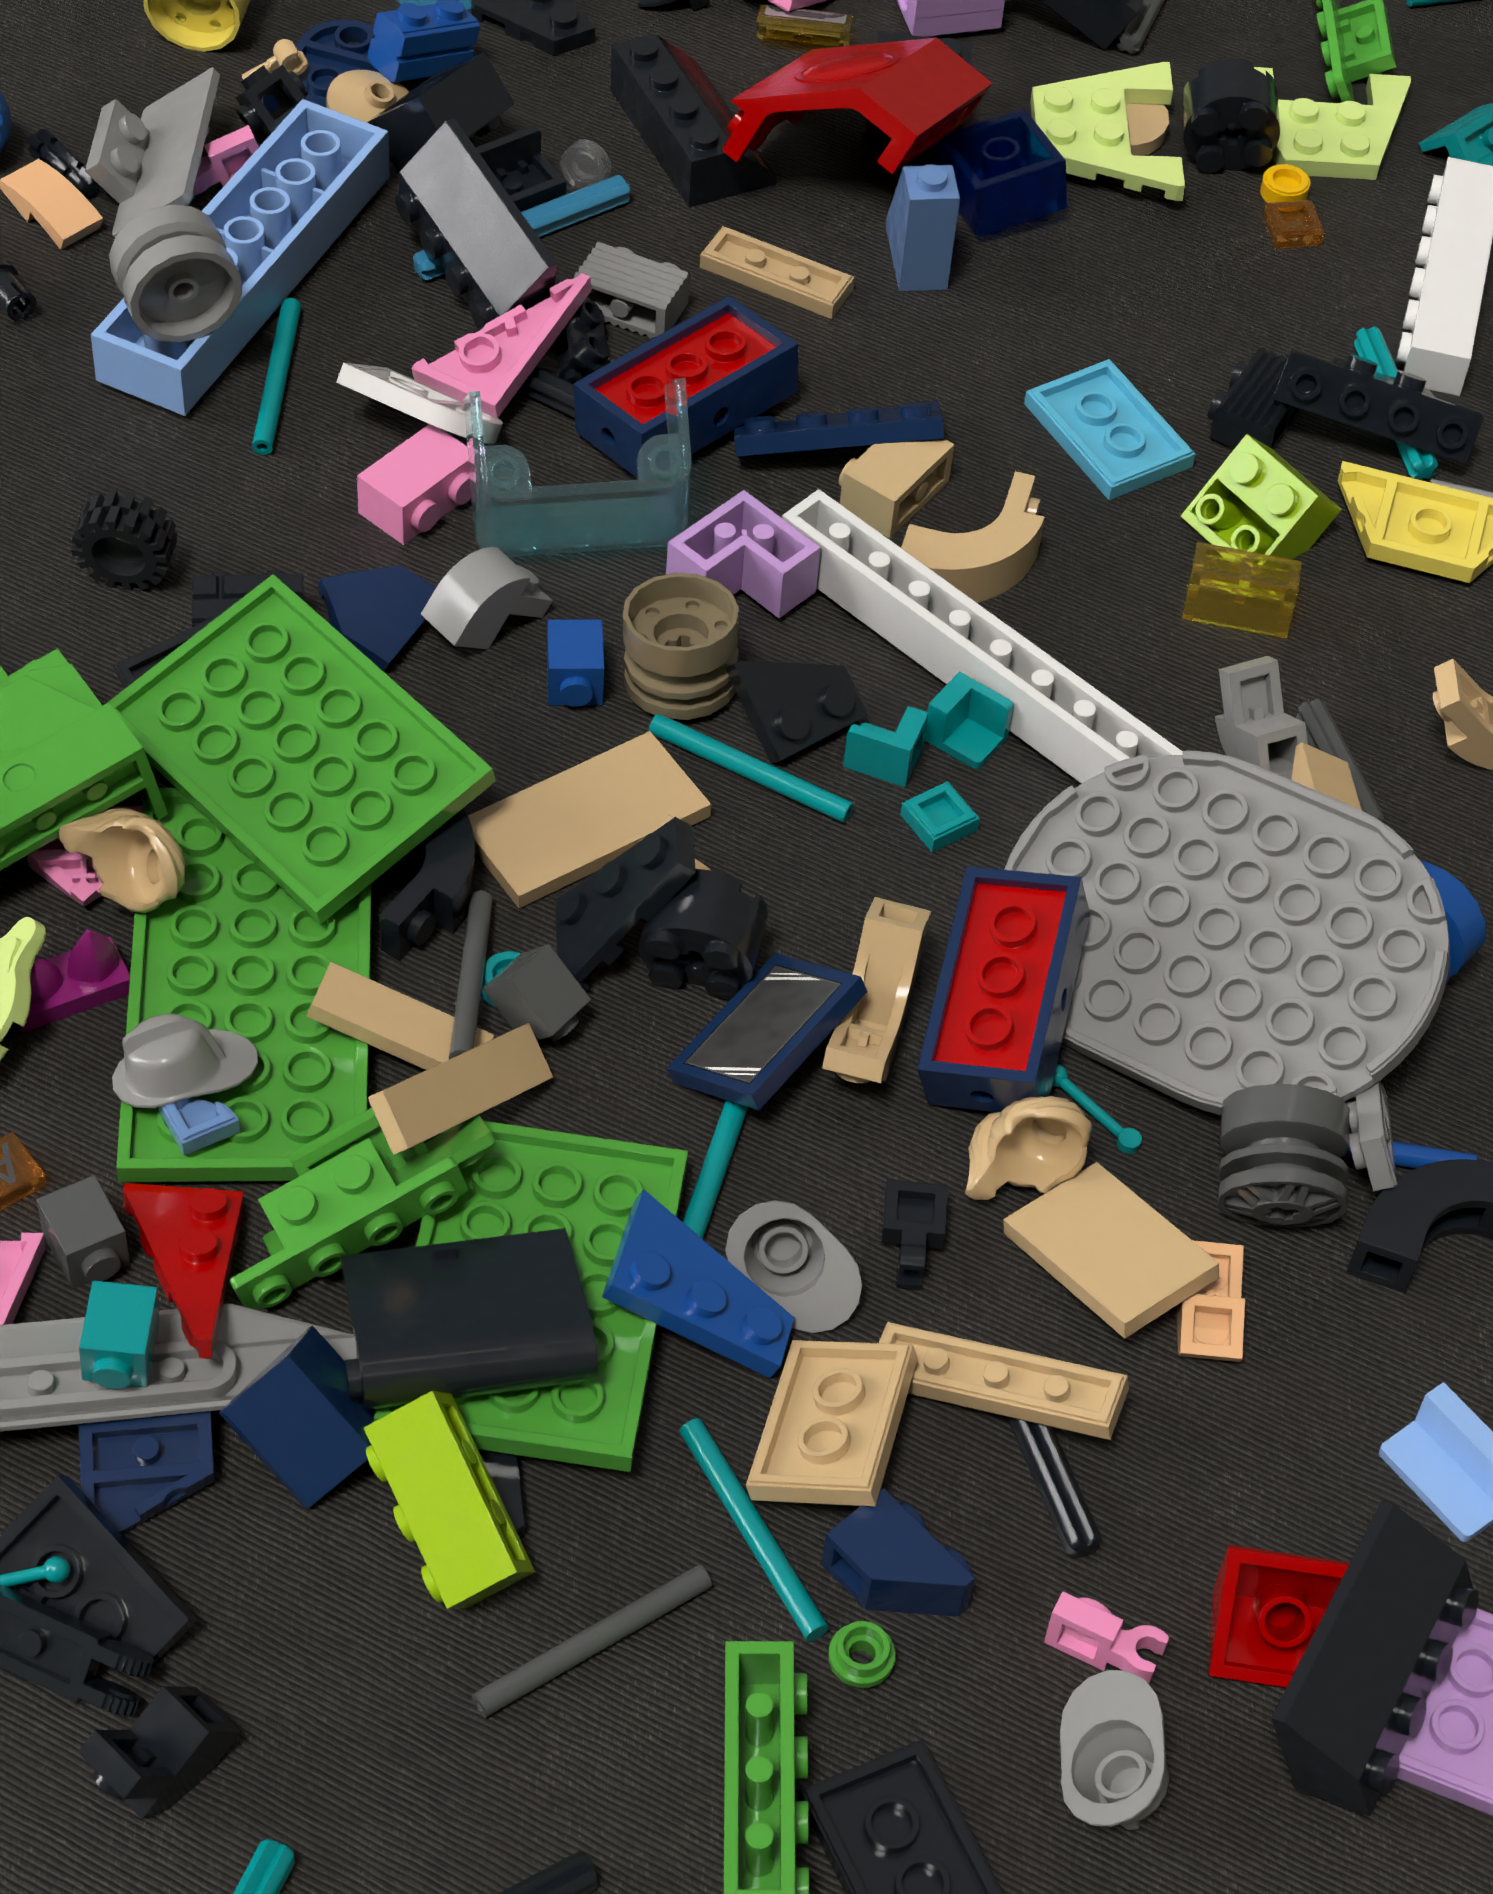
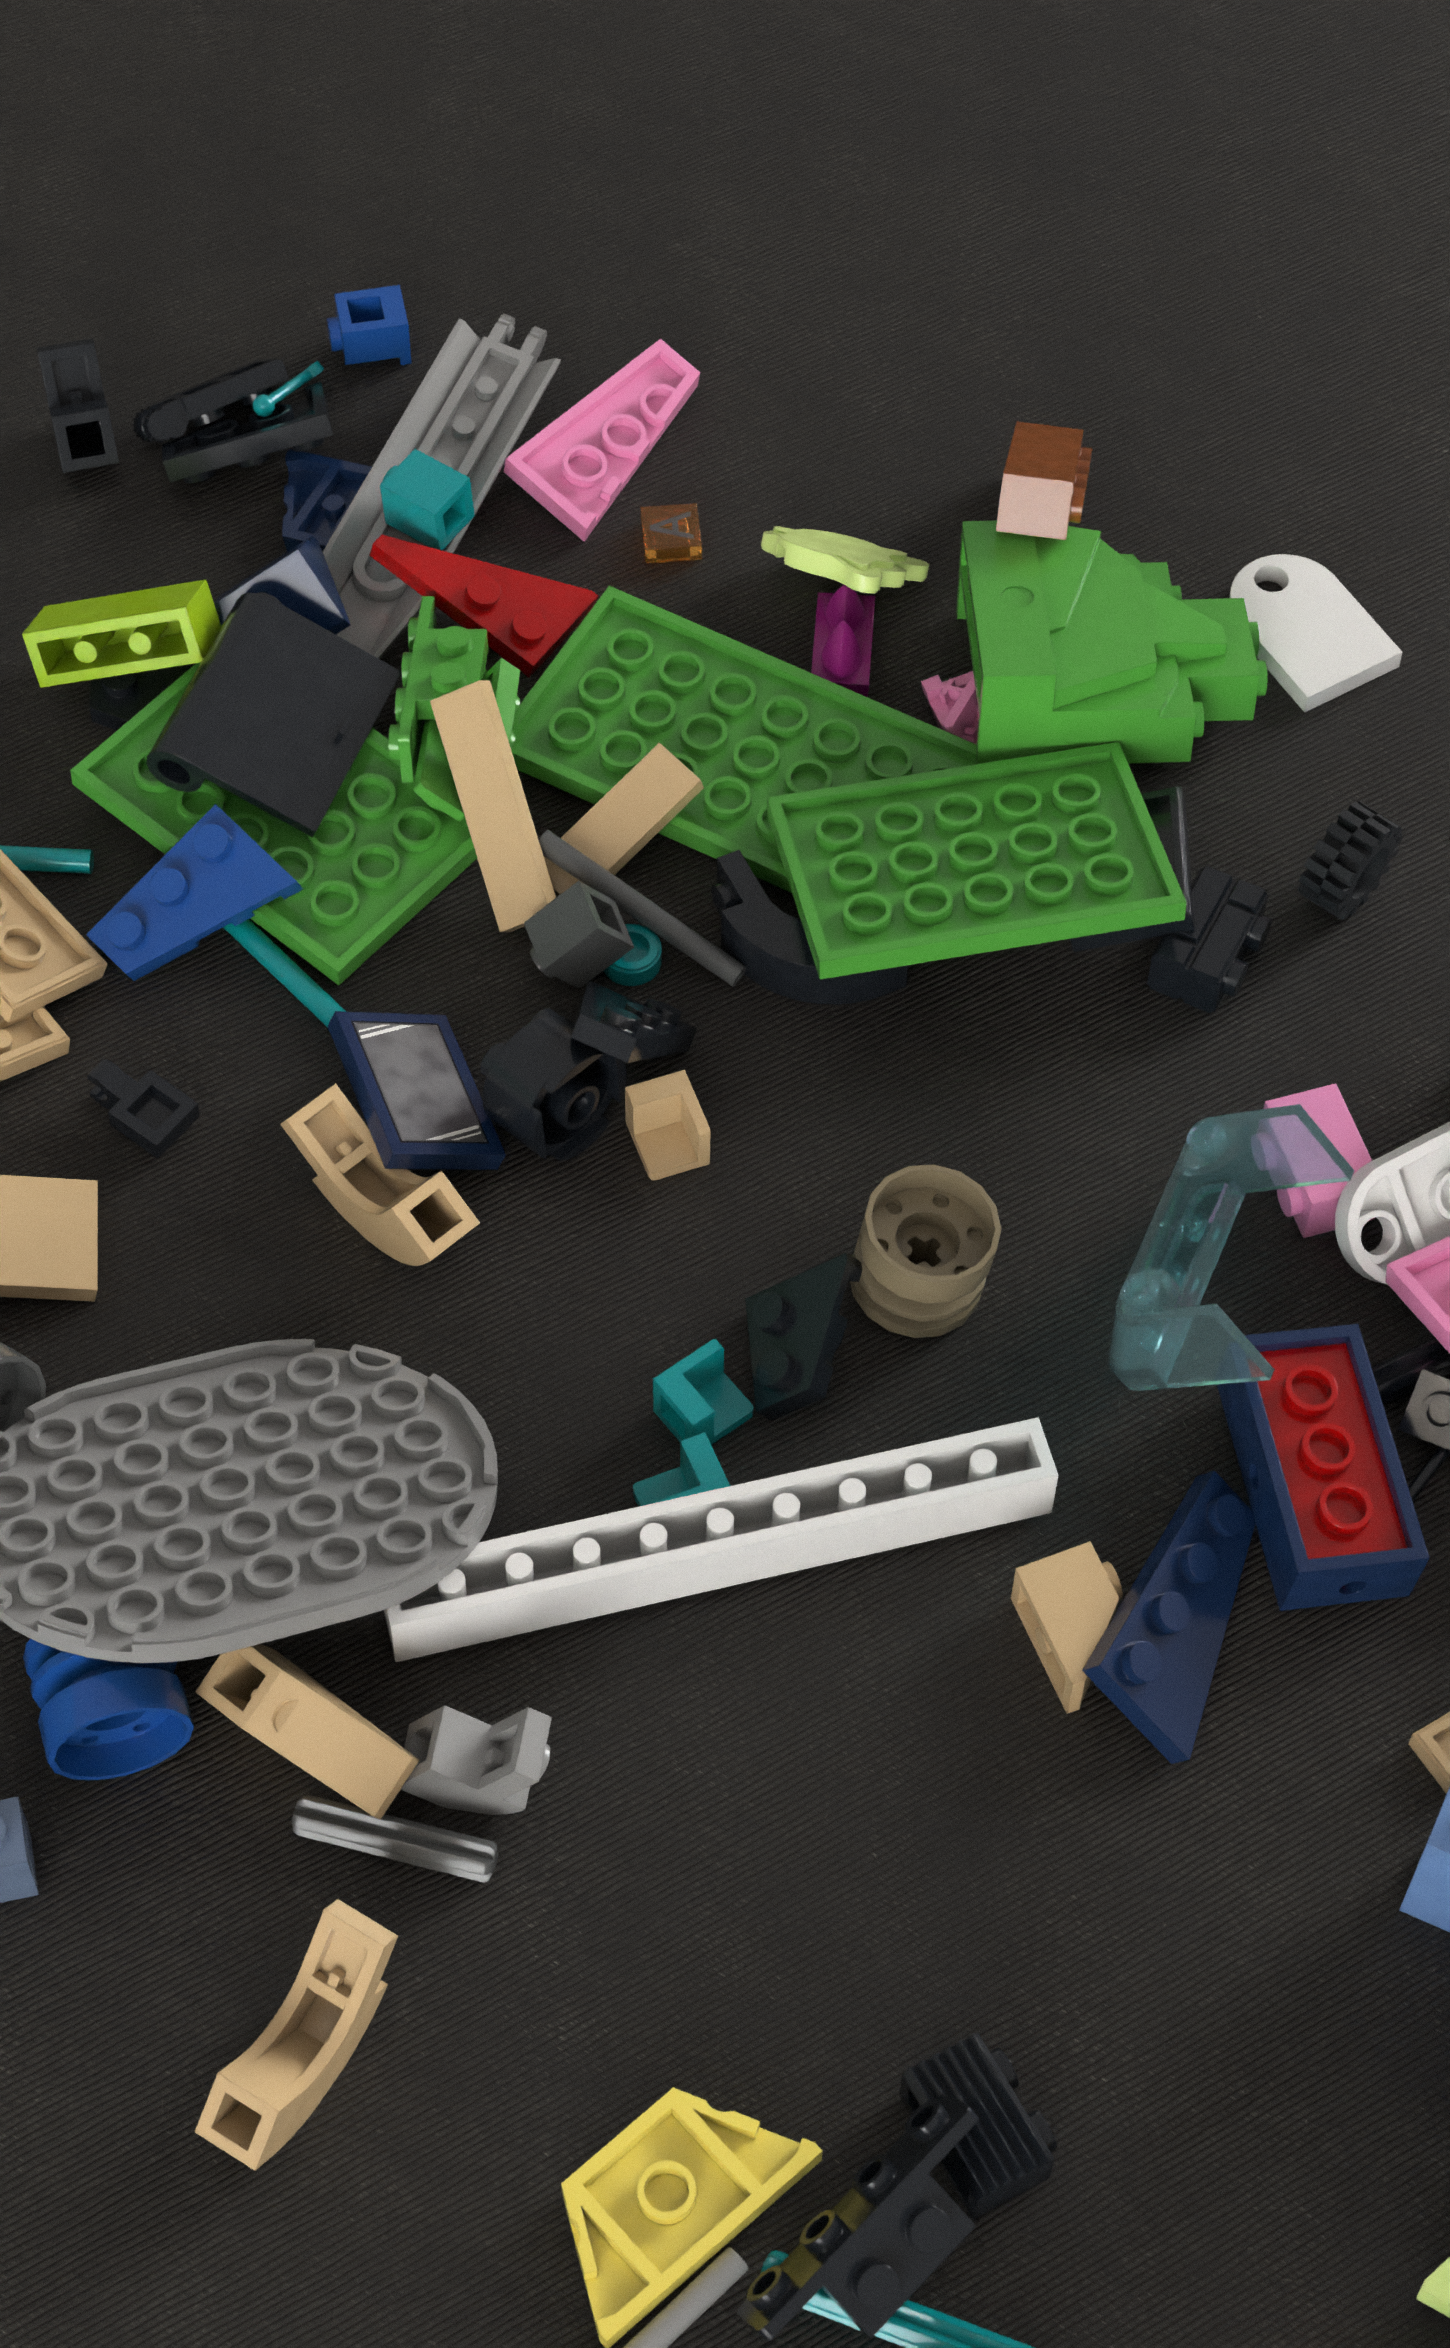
camera: 125 degrees right, 5 degrees up
(83, 1232) = (563, 544): dark grey brick -> none
(131, 856) = (928, 697): tan hair -> none
(179, 1060) = (673, 654): light grey piece -> none
(199, 1123) = (613, 644): medium blue tile -> none
(377, 609) = (1156, 1051): dark blue slope -> none
(479, 597) = (1108, 1130): light grey brick -> none
(575, 662) = (988, 1161): blue brick -> none
(583, 818) = (782, 1104): tan tile -> none
(750, 551) = (1035, 1375): lavender brick -> none
(751, 768) = (751, 1277): teal piece -> none
(796, 1264) = (180, 992): light grey piece -> none
(939, 816) = (587, 1409): teal tile -> none
(990, 558) = (907, 1597): tan arch -> none
(1004, 989) = (302, 1278): brick -> none
(1028, 1145) = (149, 1224): tan hair -> none
(1109, 429) = (1048, 1937): medium azure tile -> none
(1127, 1138) = (110, 1346): teal hinge -> none
(1242, 590) = (695, 1889): clear yellow hinge -> none
(1260, 504) = (803, 2003): lime slope -> none

